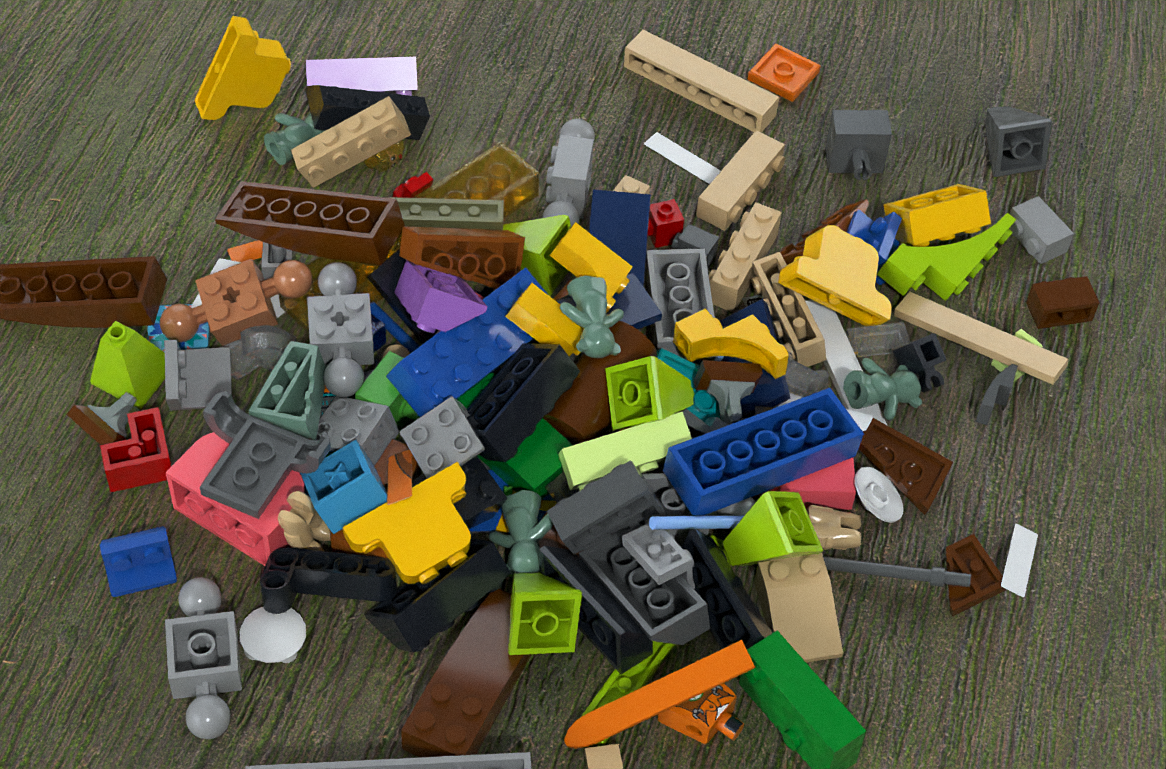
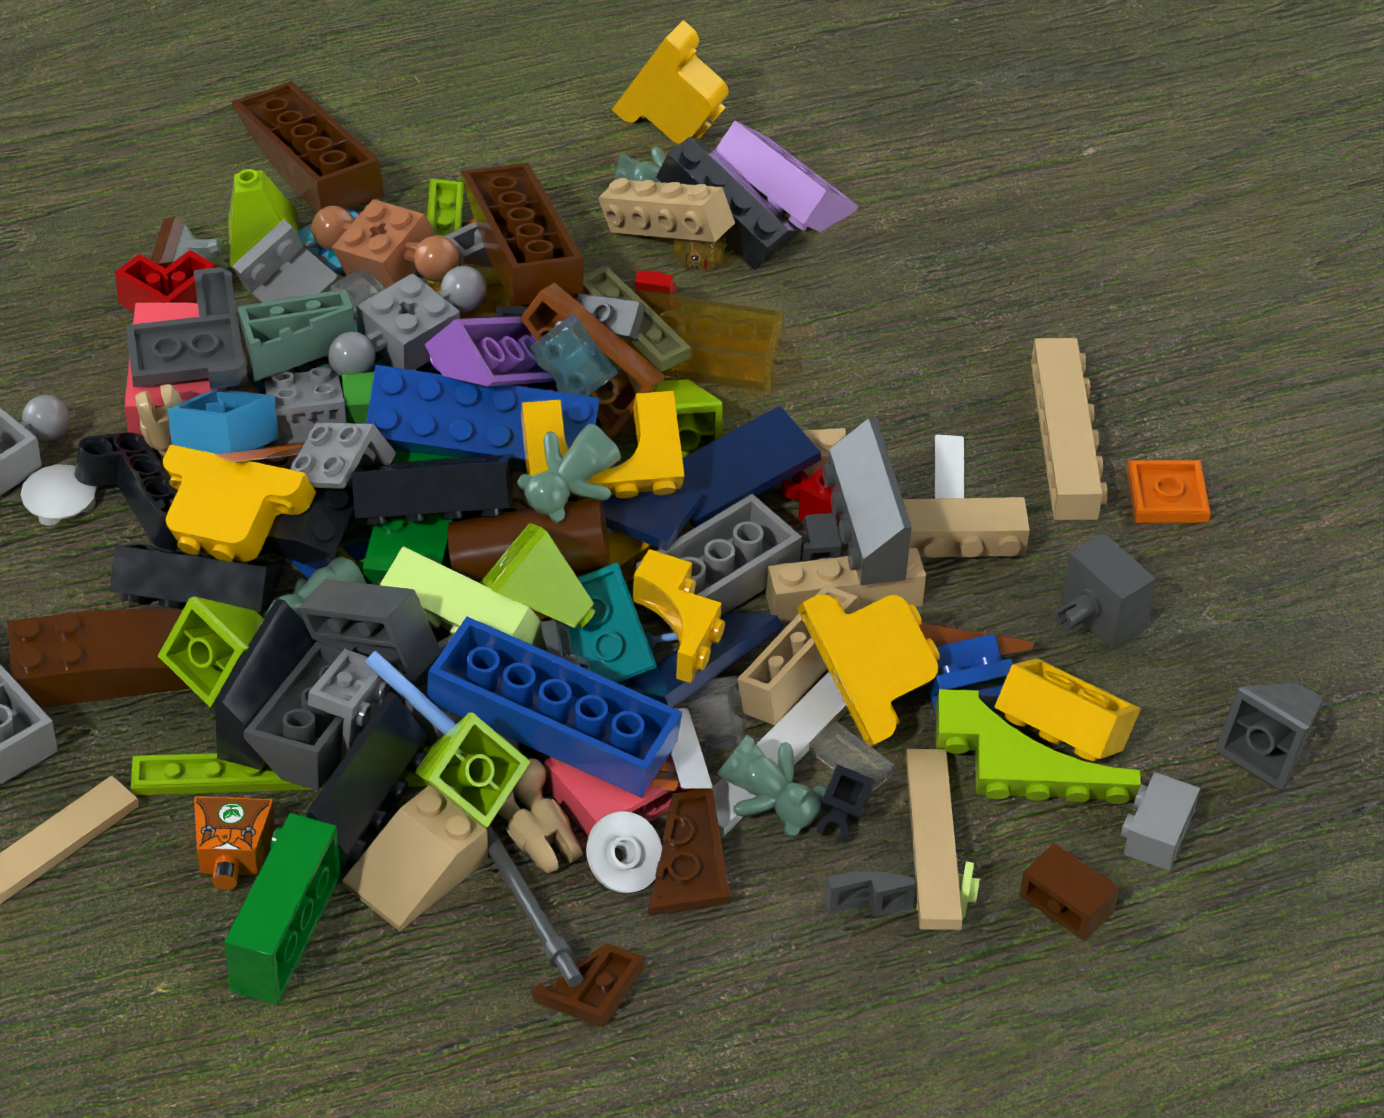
camera: 55 degrees right, 5 degrees down
(138, 561) = (56, 358): blue bracket -> none
(205, 254) = (445, 206): none -> lime tile
(444, 216) = (617, 314): none -> plate
(474, 260) = (573, 358): none -> clear light blue brick
(571, 171) = (806, 386): light grey brick -> none
(659, 696) = (202, 788): orange piece -> none
(725, 194) = (869, 505): none -> slope
(729, 384) = (631, 644): piece -> none
(1019, 560) = (651, 1018): white sticker -> none

